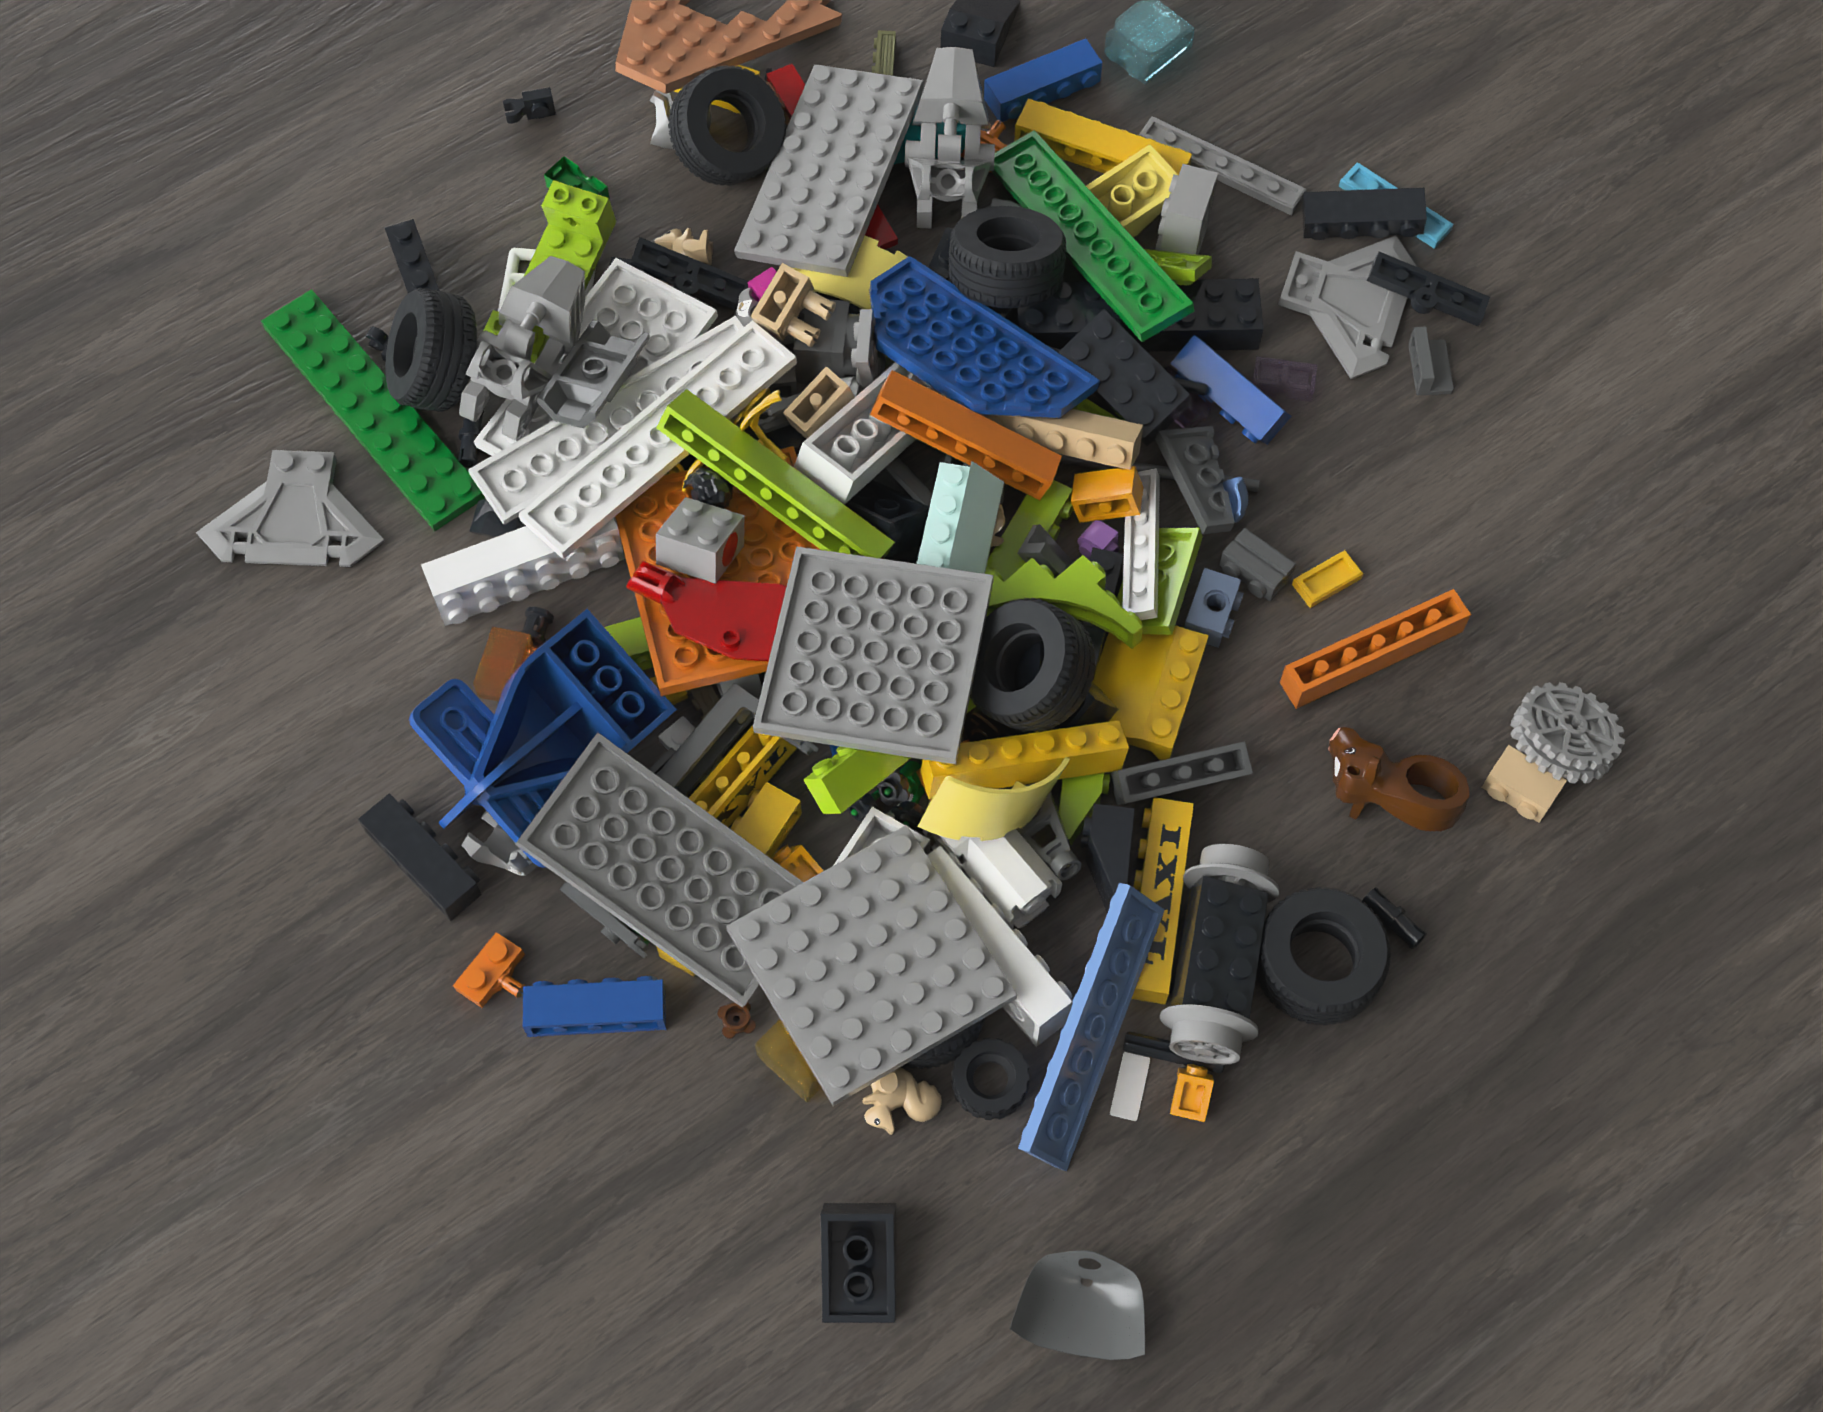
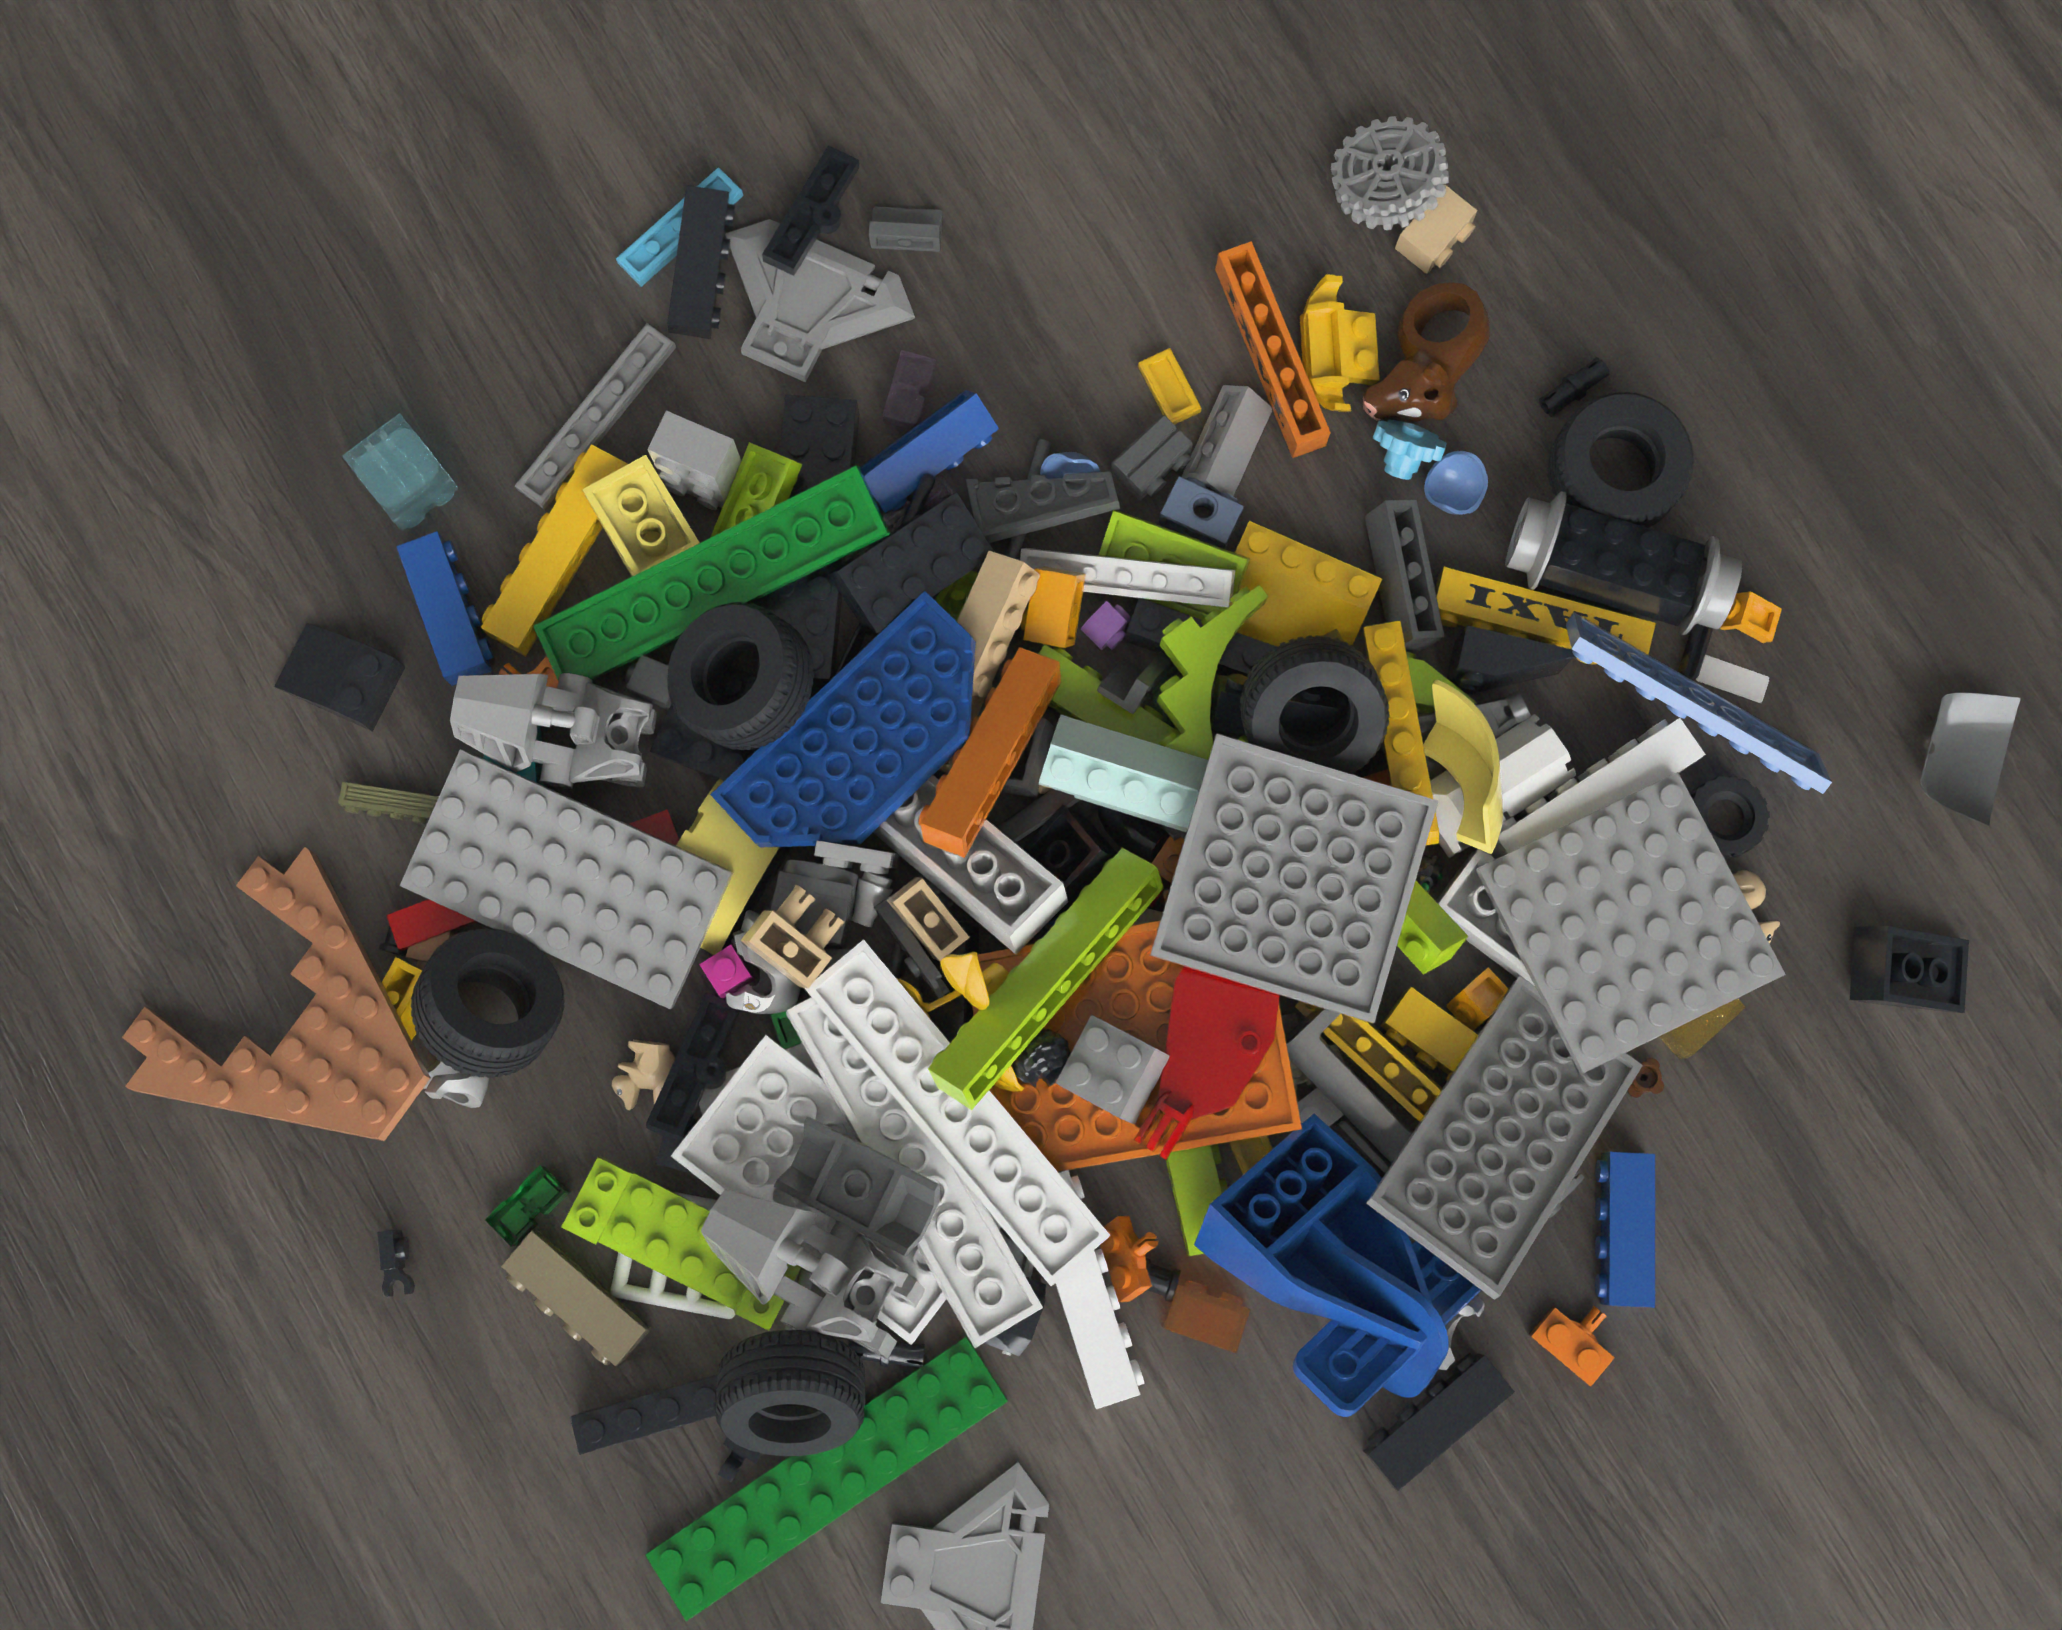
camera: 85 degrees left, 15 degrees up
(503, 224) = (575, 1298): none -> dark tan brick
(556, 595) = (1126, 1258): none -> orange plate
(1275, 816) = (1457, 483): none -> medium blue helmet
(1282, 627) = (1228, 439): none -> light grey panel
(1305, 768) = (1407, 447): none -> medium azure plant
(1392, 708) = (1336, 345): none -> yellow plate

